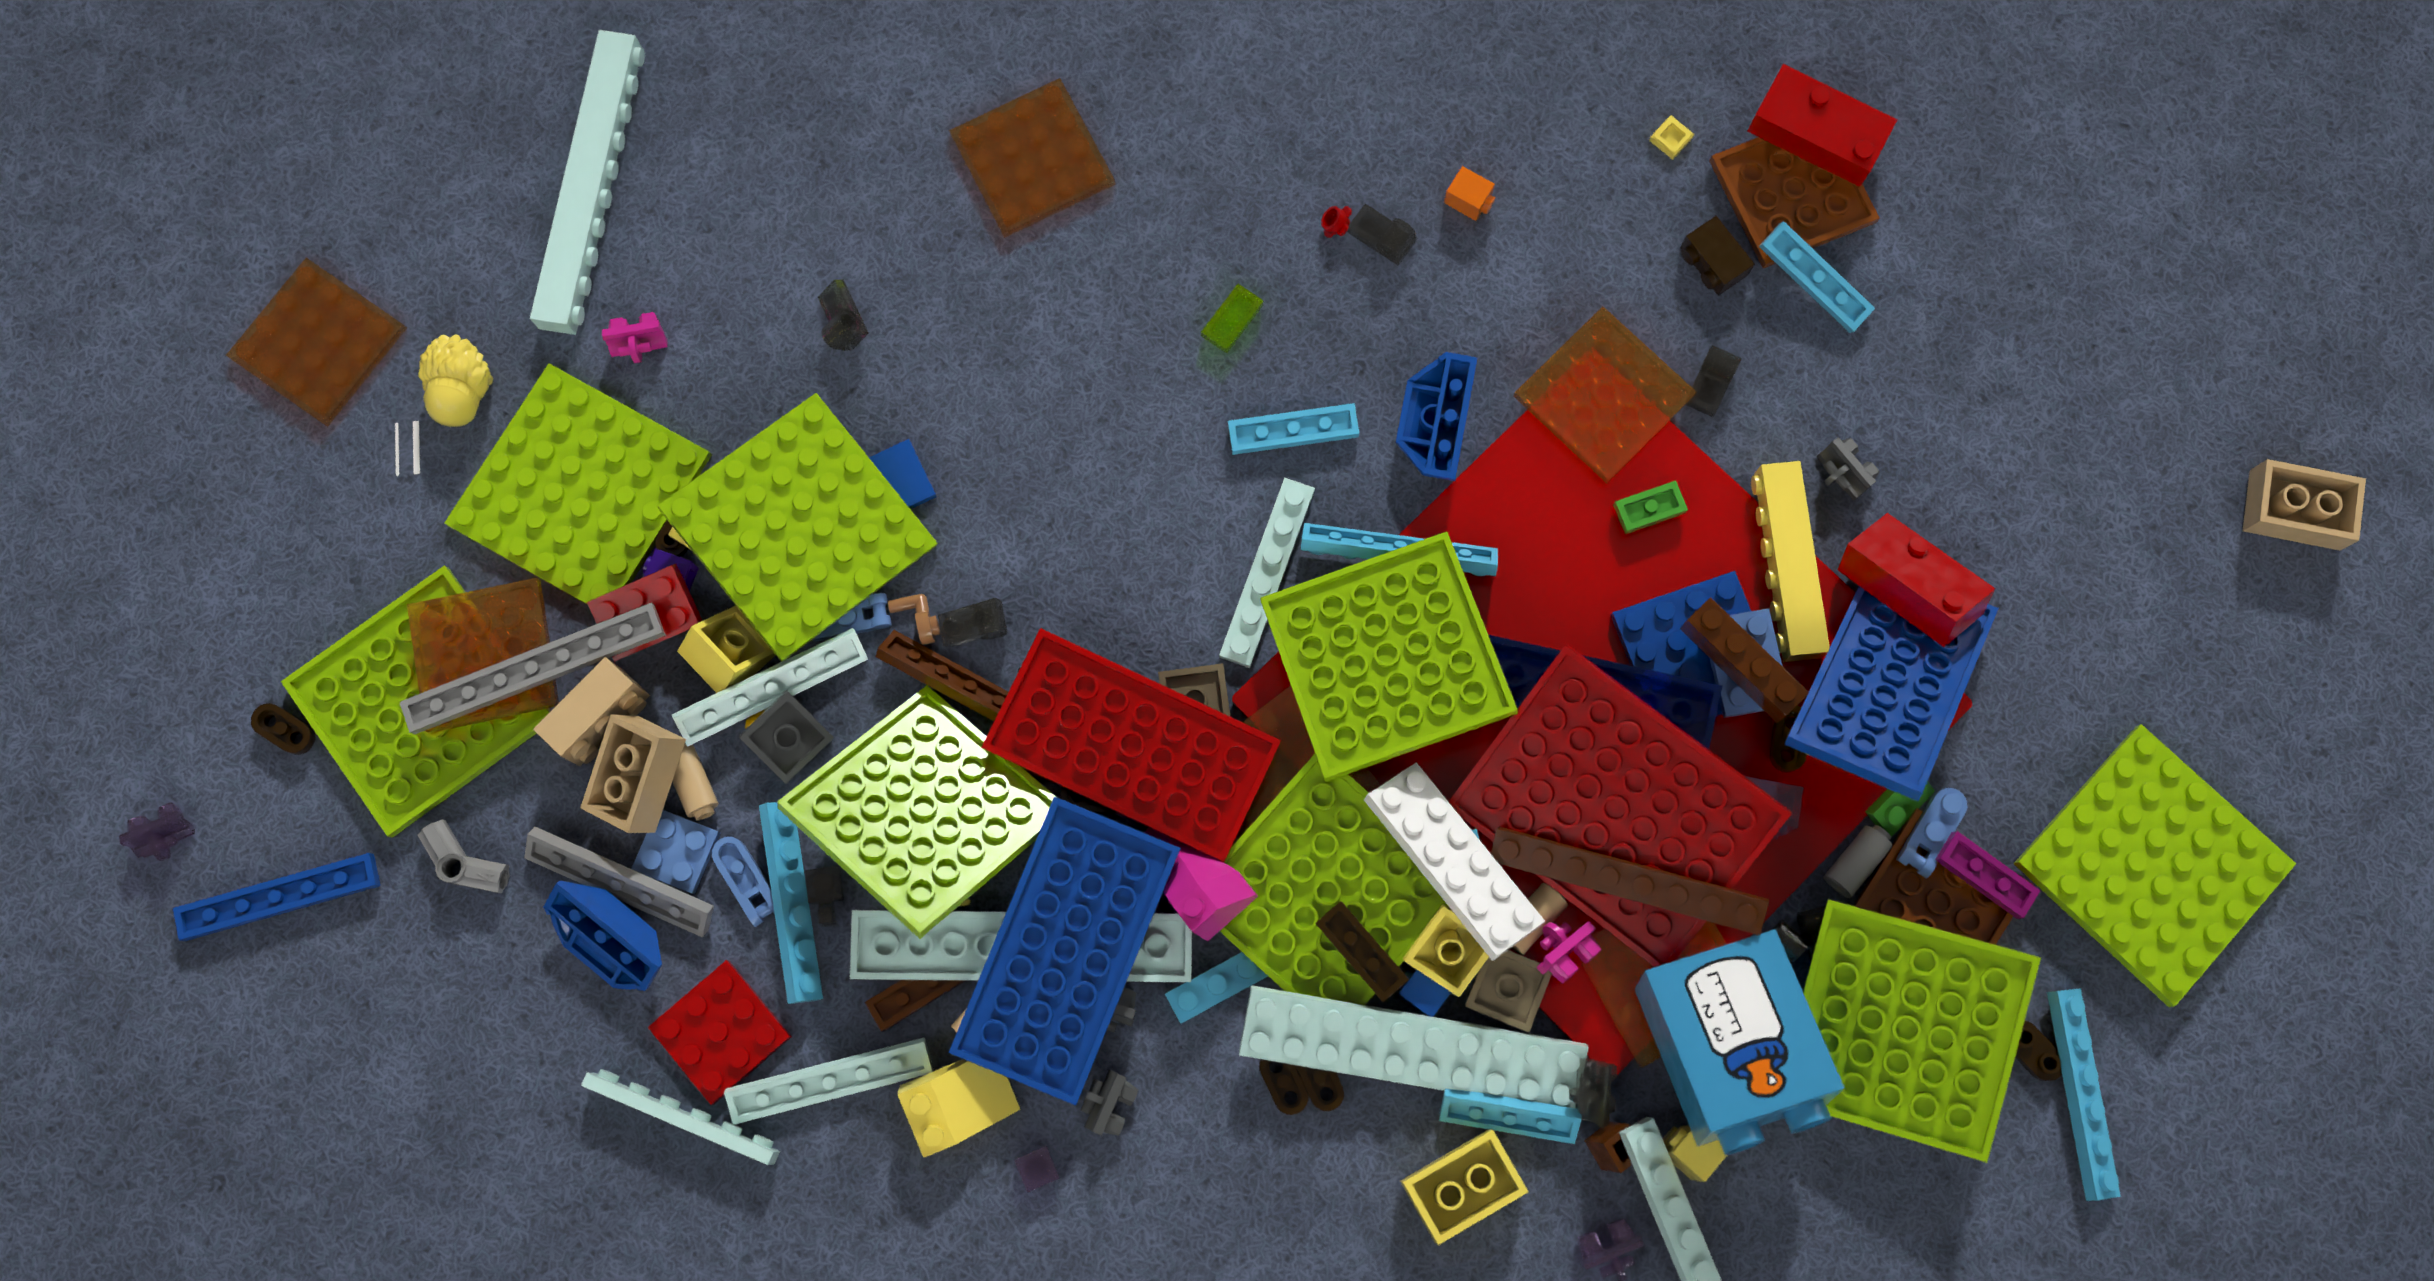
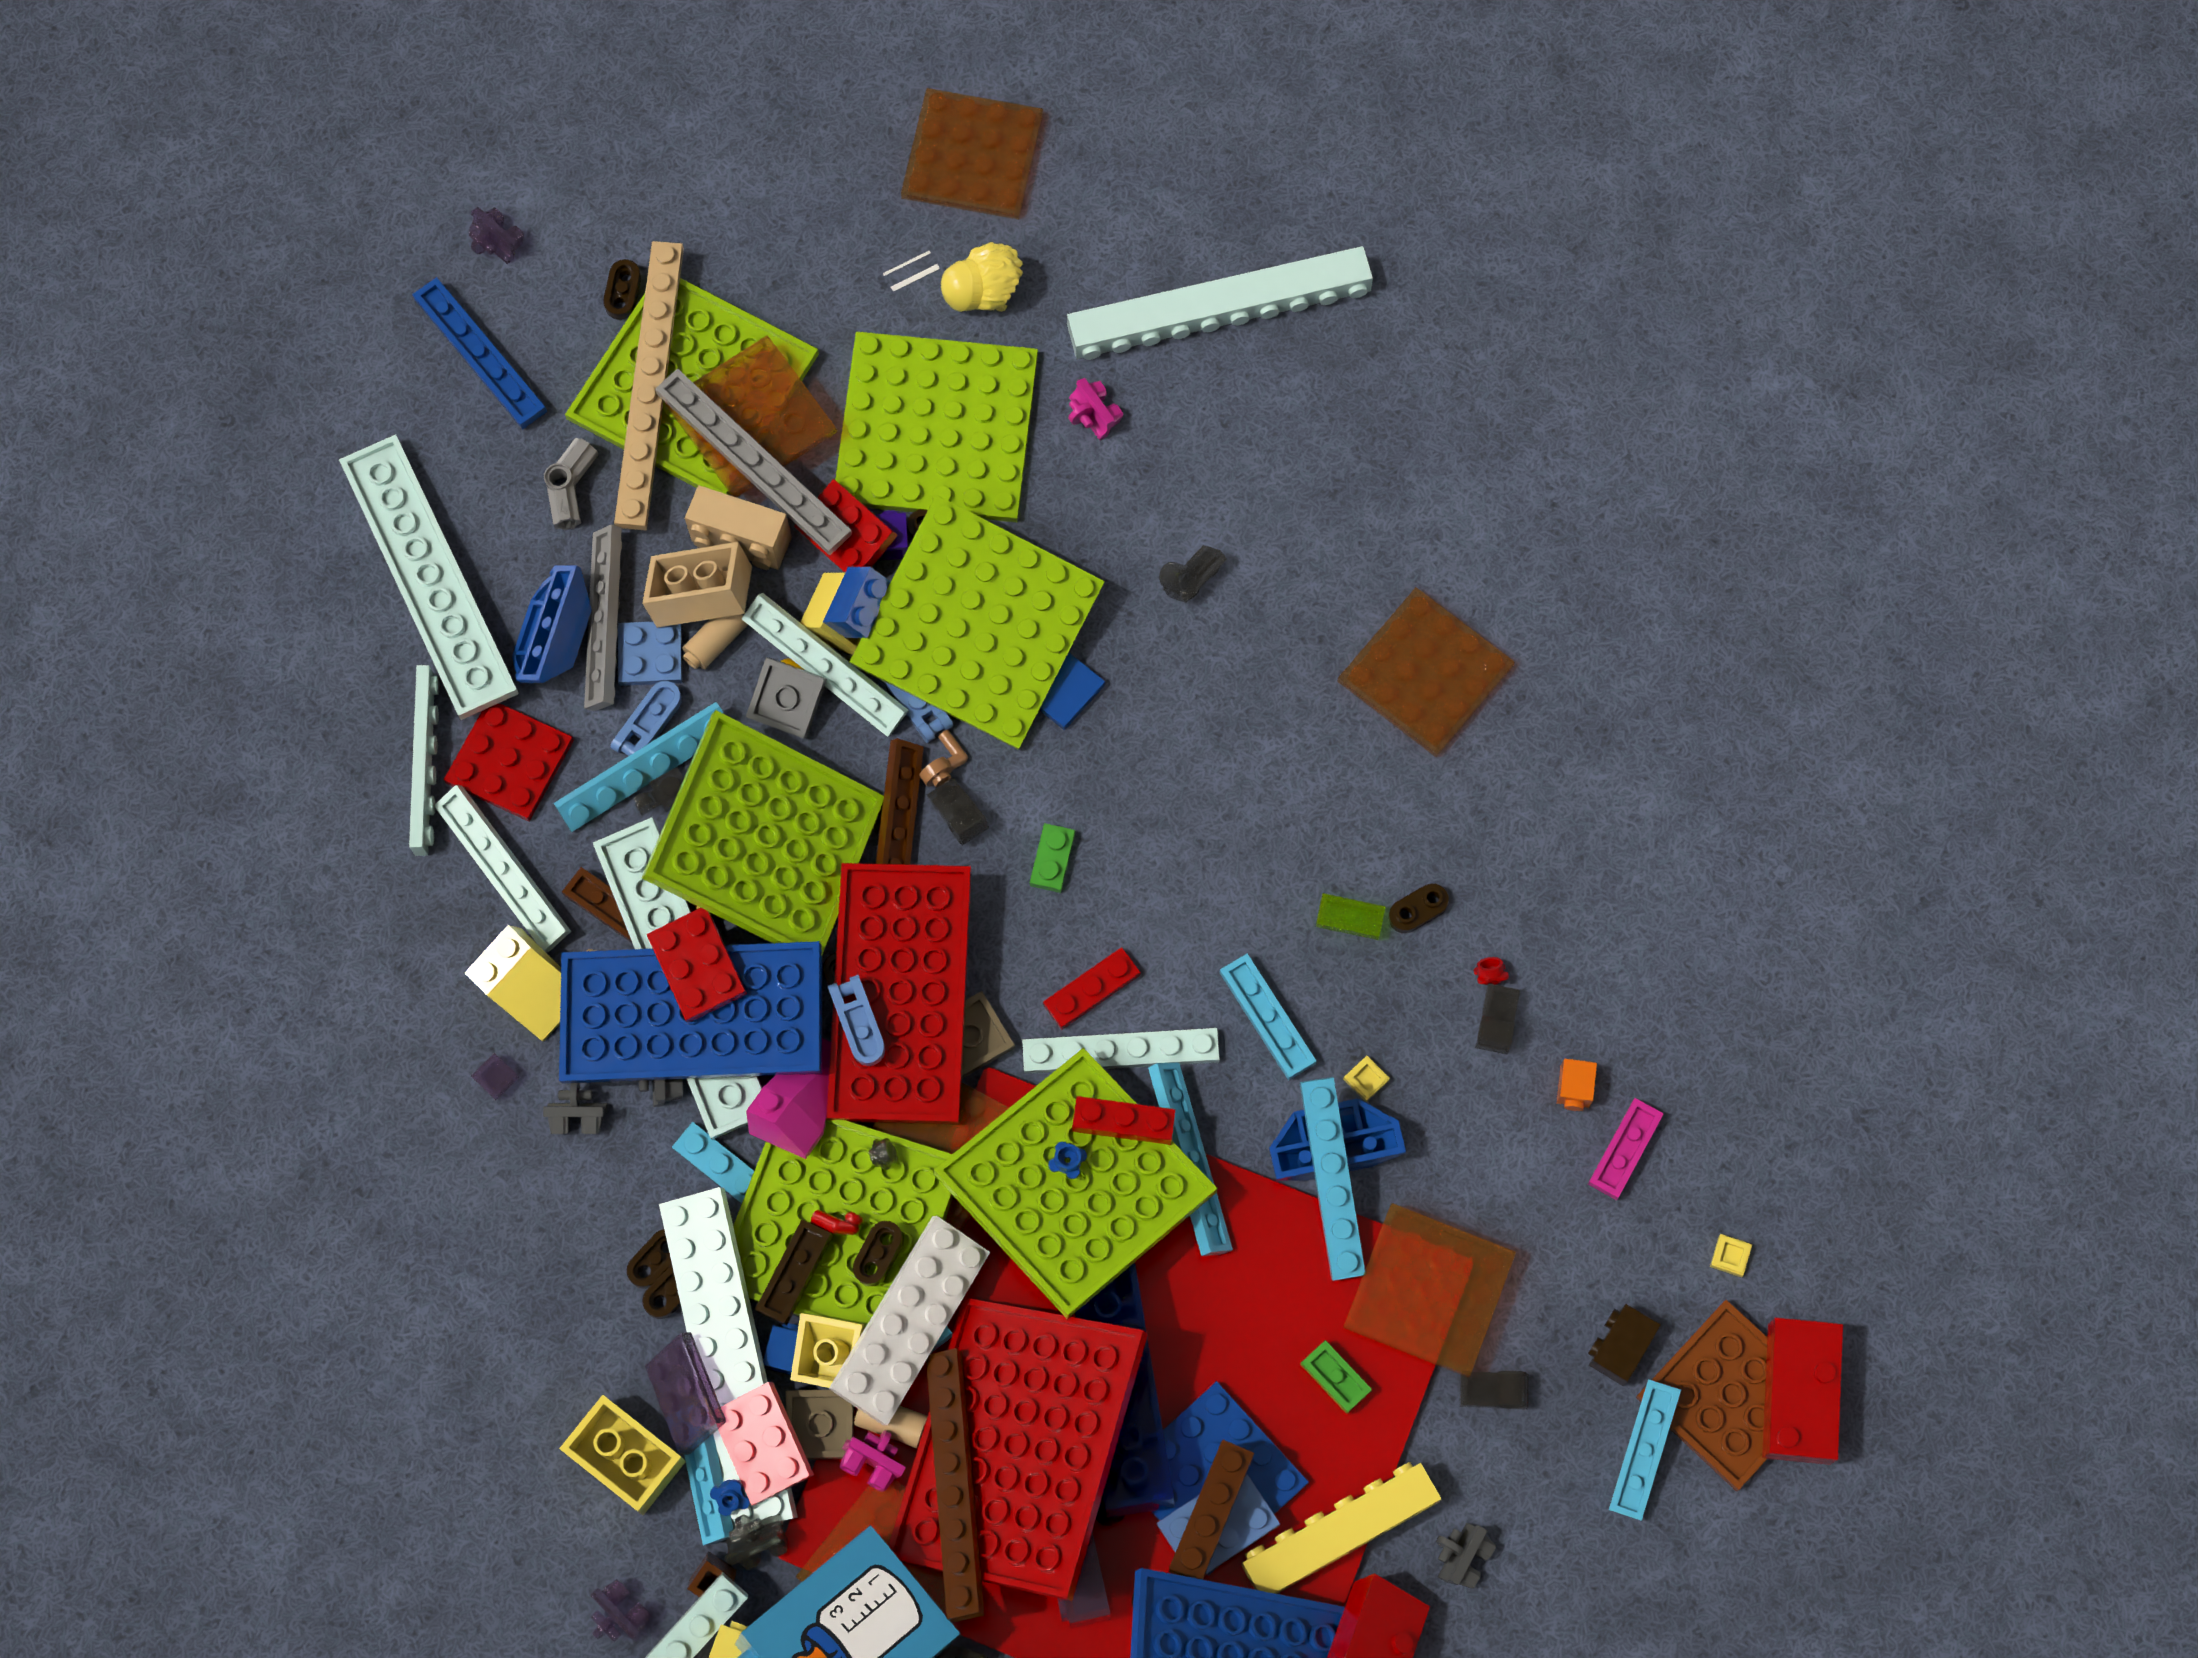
camera: 65 degrees right, 5 degrees down
(396, 740) = (649, 373): none -> tan plate
(490, 1038) = (428, 577): none -> light aqua plate
(727, 627) = (857, 602): none -> blue brick
(1023, 923) = (696, 964): none -> red plate
(1056, 557) = (1052, 858): none -> bright green plate
(1146, 792) = (858, 1022): none -> medium blue plate
(1197, 573) = (1091, 988): none -> red plate
(1249, 256) = (1419, 907): none -> dark brown plate
(1284, 821) = (883, 1153): none -> clear smoke plate
(1333, 894) = (834, 1225): none -> red arm
(1348, 587) = (1123, 1120): none -> red plate
(1367, 642) = (1063, 1151): none -> blue plate
(1379, 863) = (877, 1254): none -> dark brown plate
(1386, 369) = (1366, 1078): none -> light yellow tile
(1431, 1102) = (685, 1393): none -> clear purple plate
(1474, 429) = (1332, 1178): none -> medium azure plate
(1511, 1047) = (763, 1444): none -> plate
(1544, 179) = (1625, 1149): none -> dark pink plate
(1547, 1098) = (729, 1488): none -> blue plate

